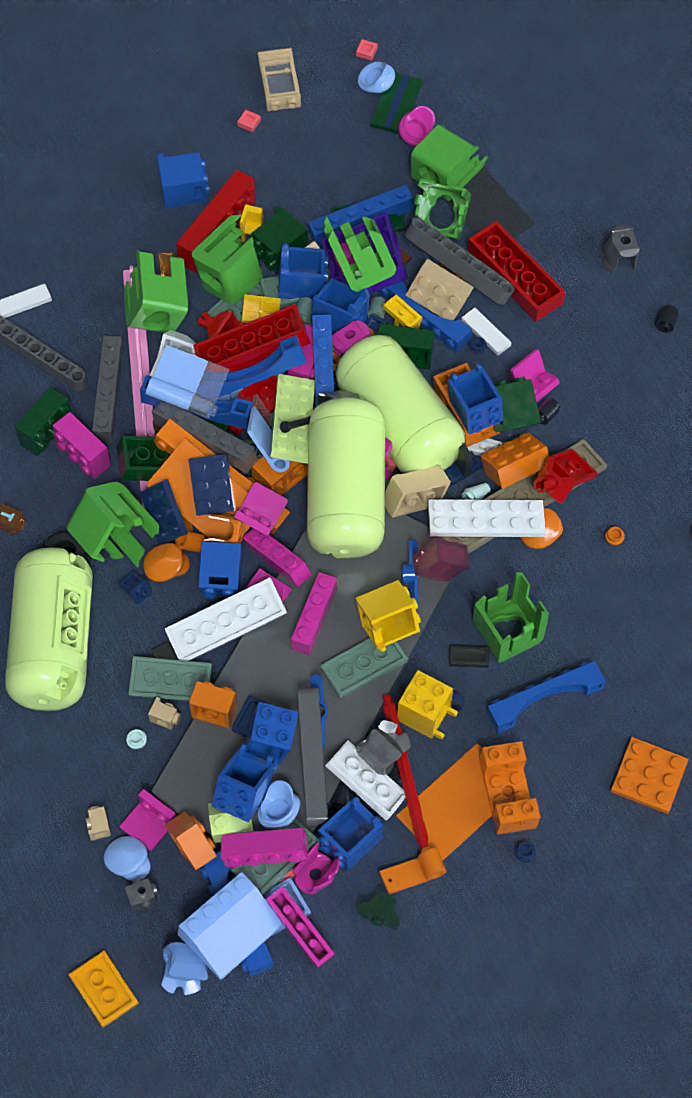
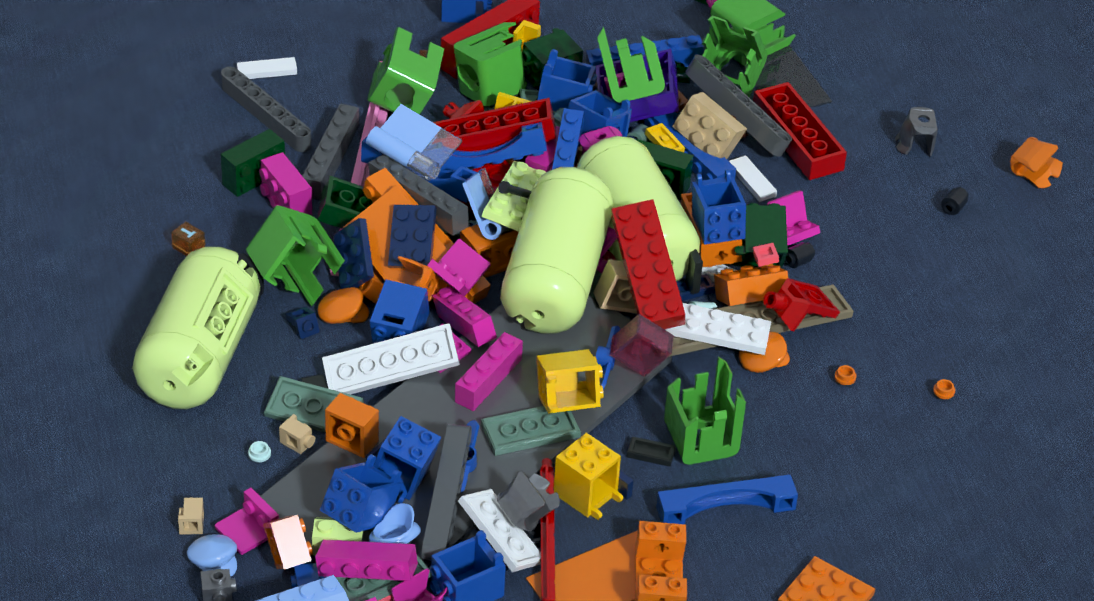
camera: 10 degrees right, 20 degrees down
(430, 481) = (648, 264): none -> red brick
(477, 341) = (742, 185): dark blue plate -> none
(523, 431) = (765, 254): none -> coral plate

